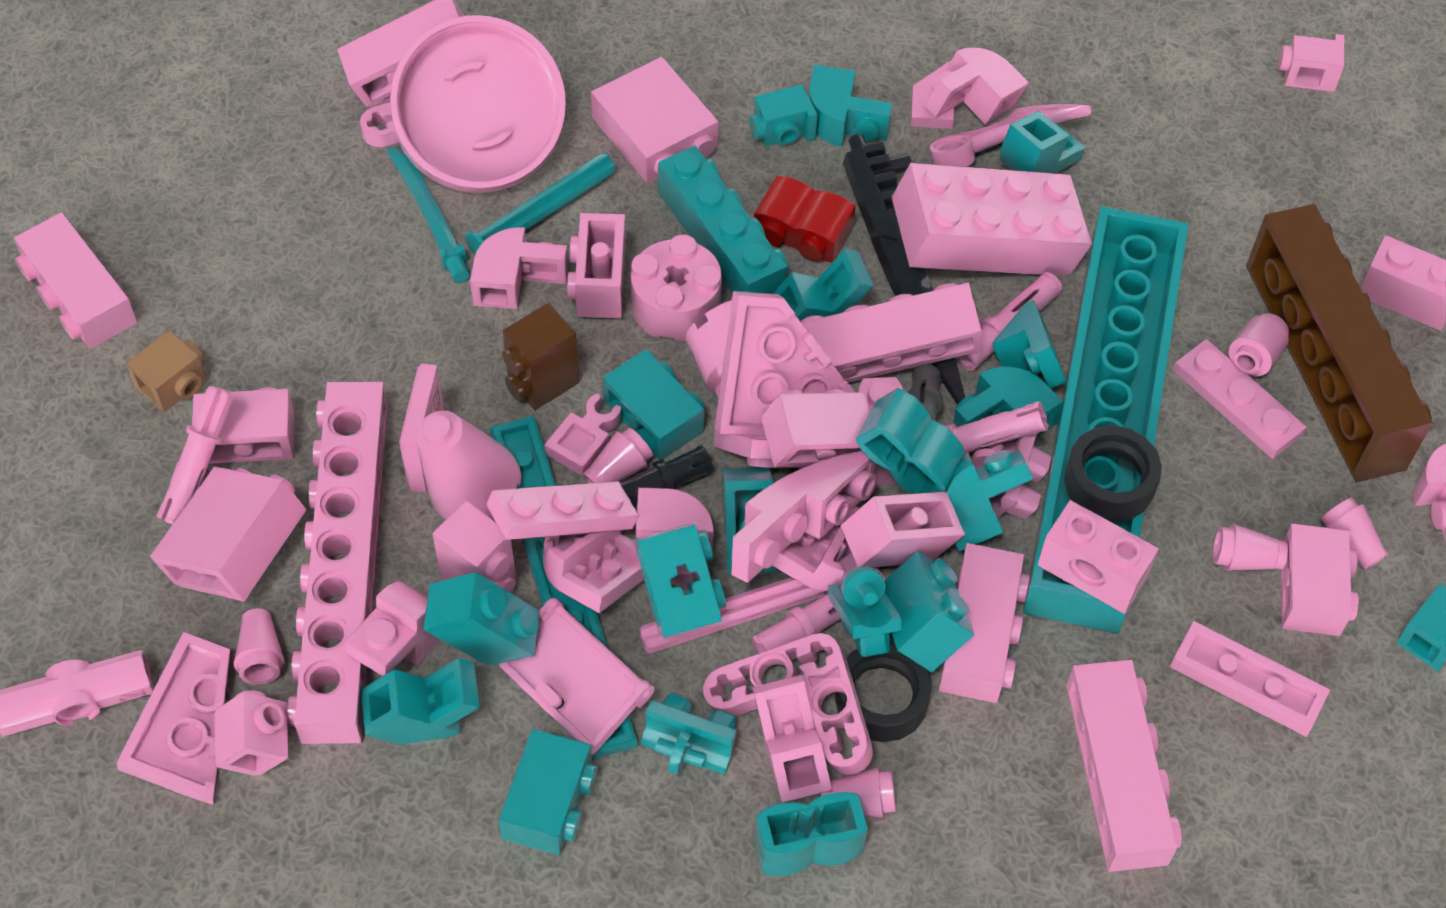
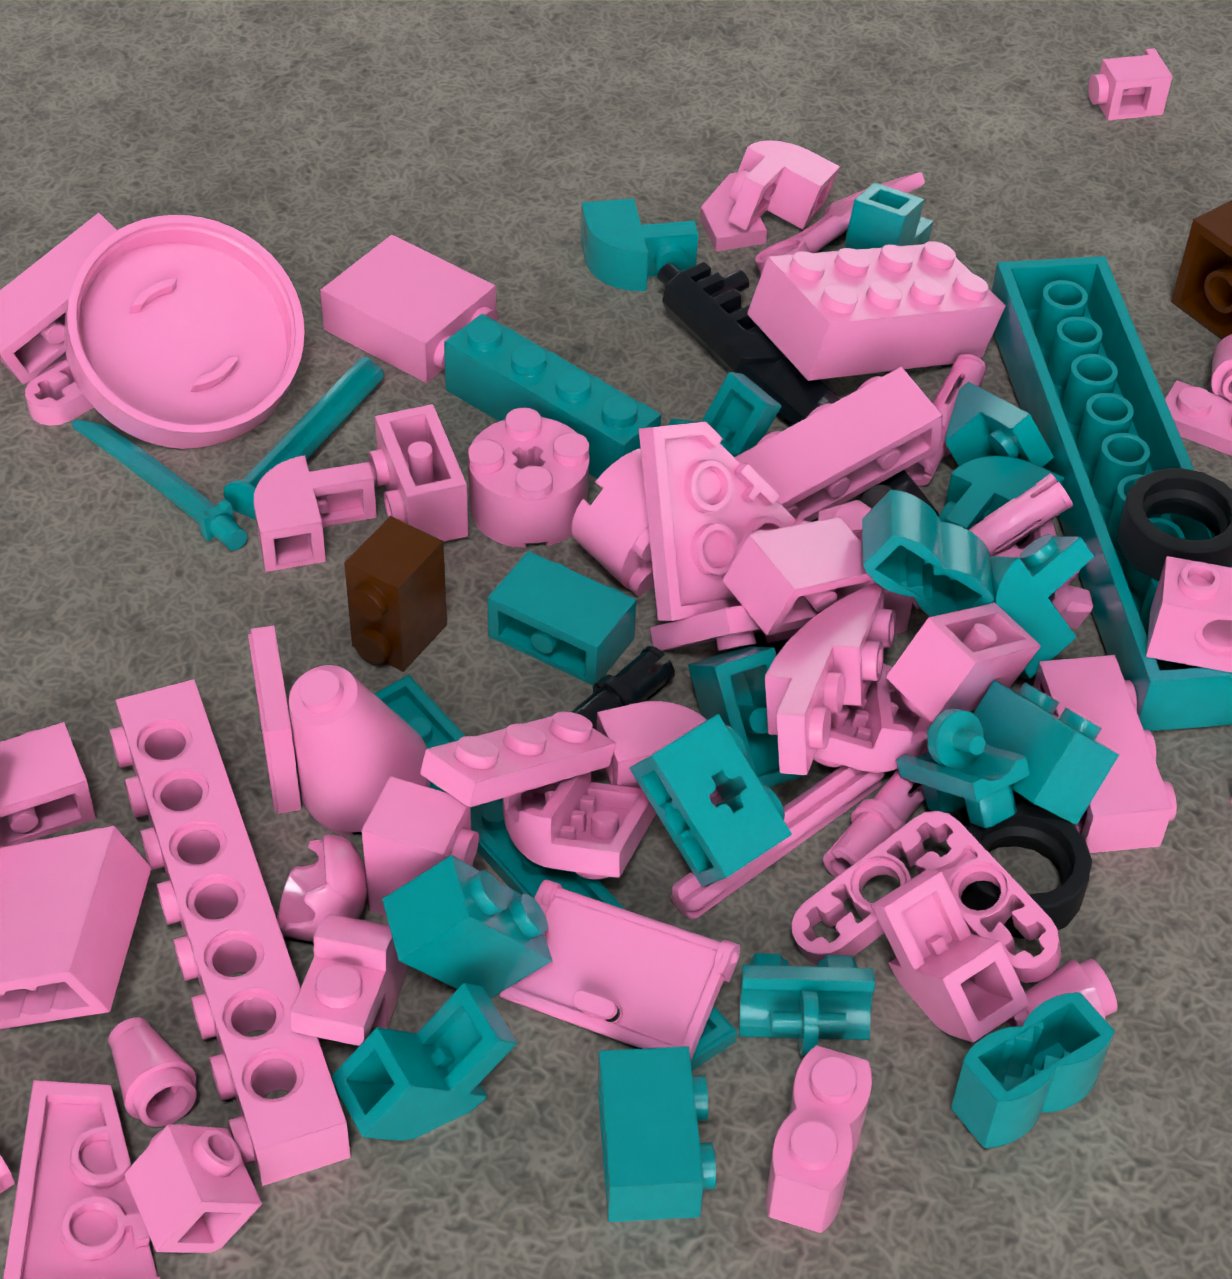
camera: 20 degrees left, 10 degrees down
(410, 560) = (328, 886): none -> bright pink hair
(582, 439) = (486, 684): bright pink plate -> none
(619, 459) = (550, 686): bright pink cone -> none
(641, 838) = (818, 1139): none -> bright pink brick
(783, 117) = (567, 269): teal brick -> none
(805, 218) = (652, 367): red brick -> none

